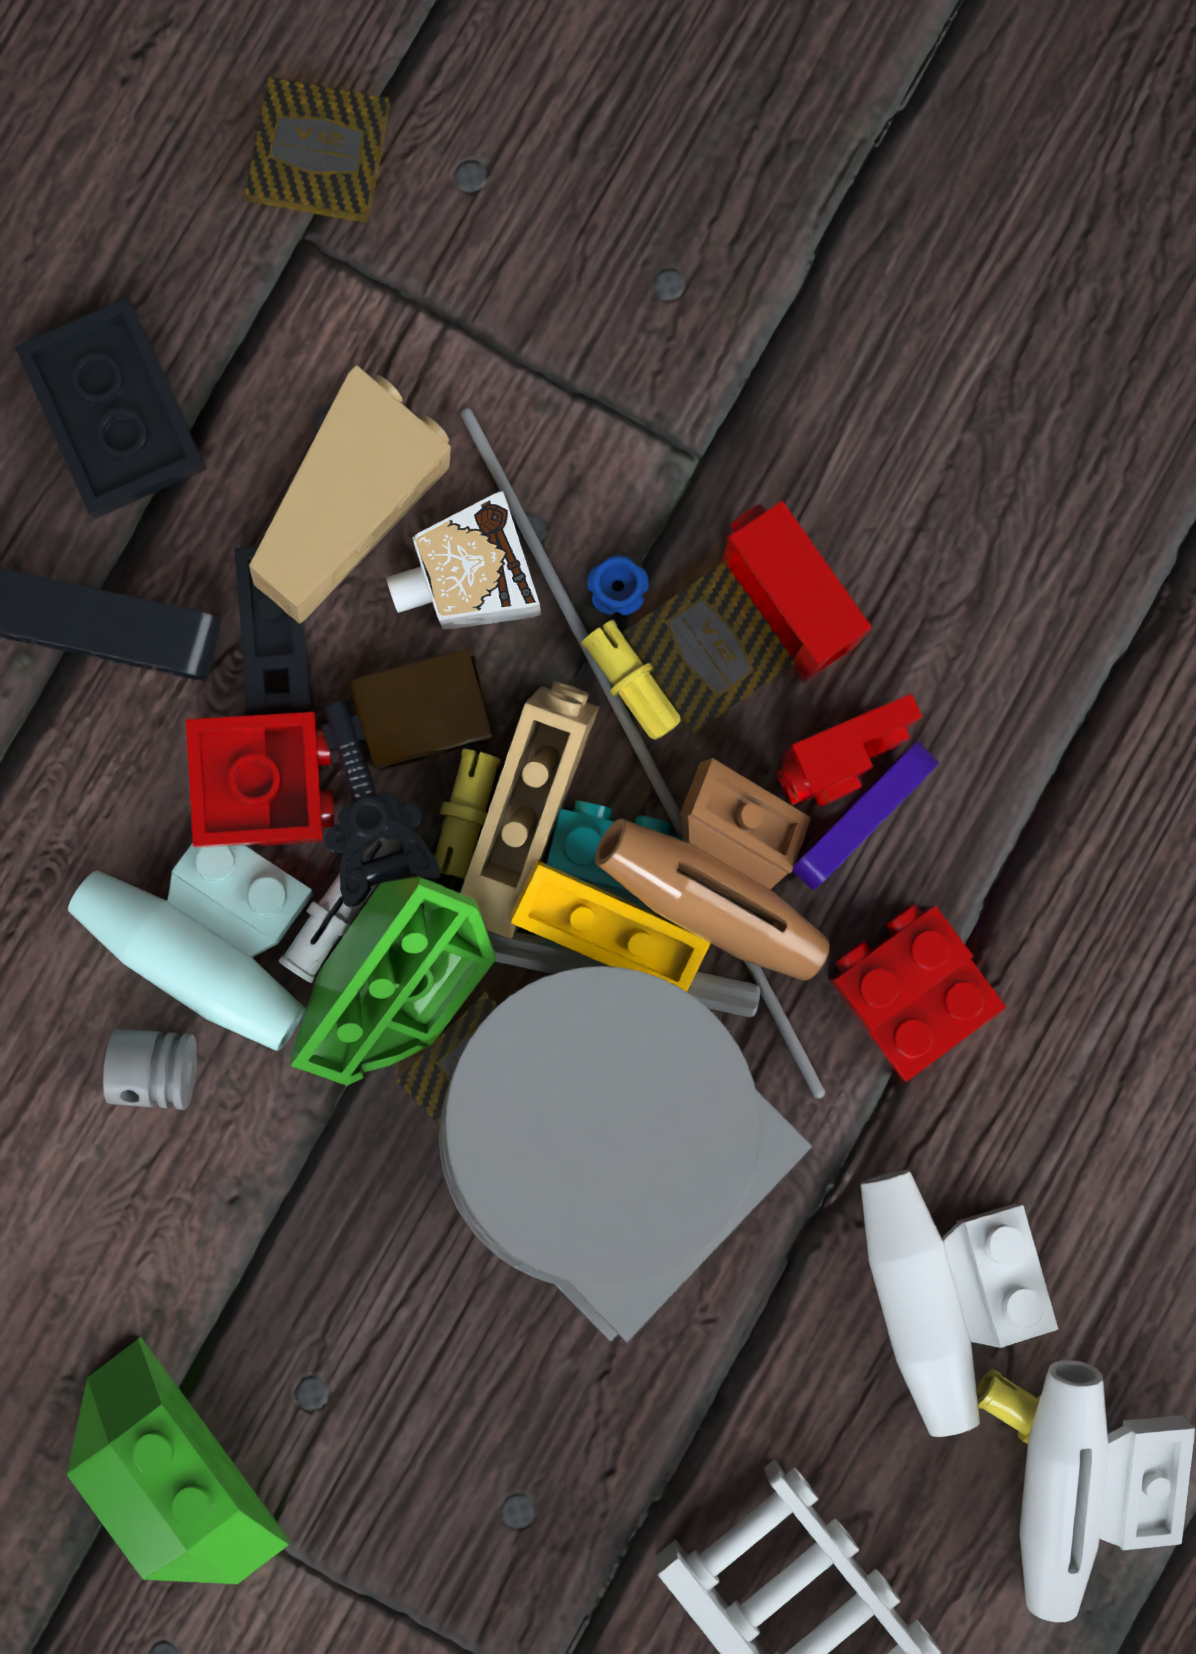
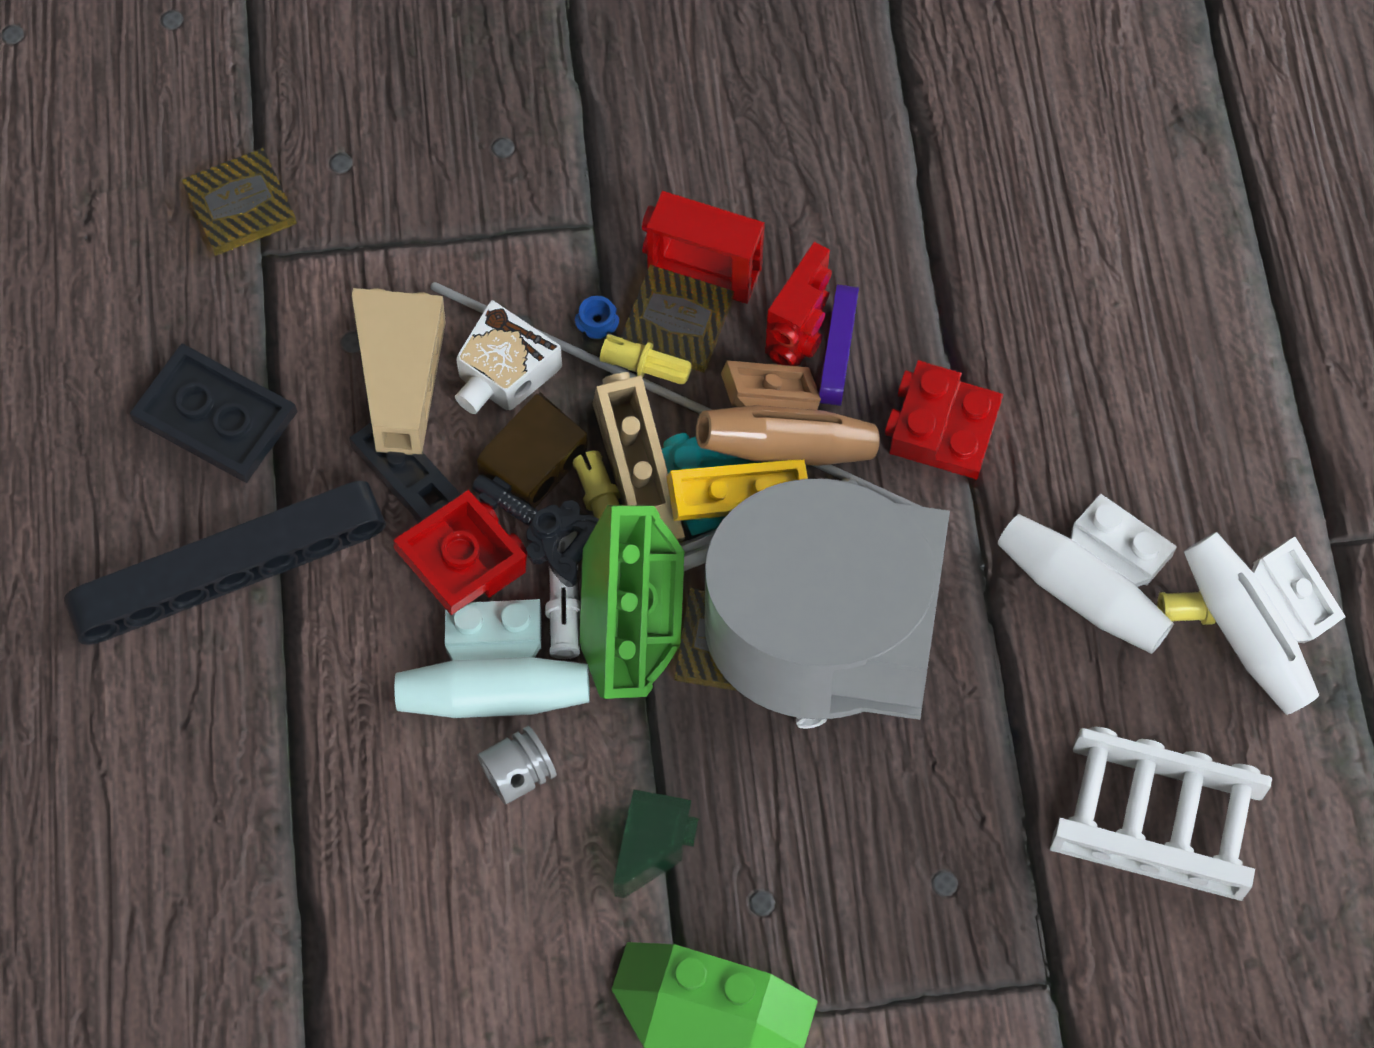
camera: 35 degrees left, 20 degrees down
(237, 1254) = (653, 839): none -> clear green slope

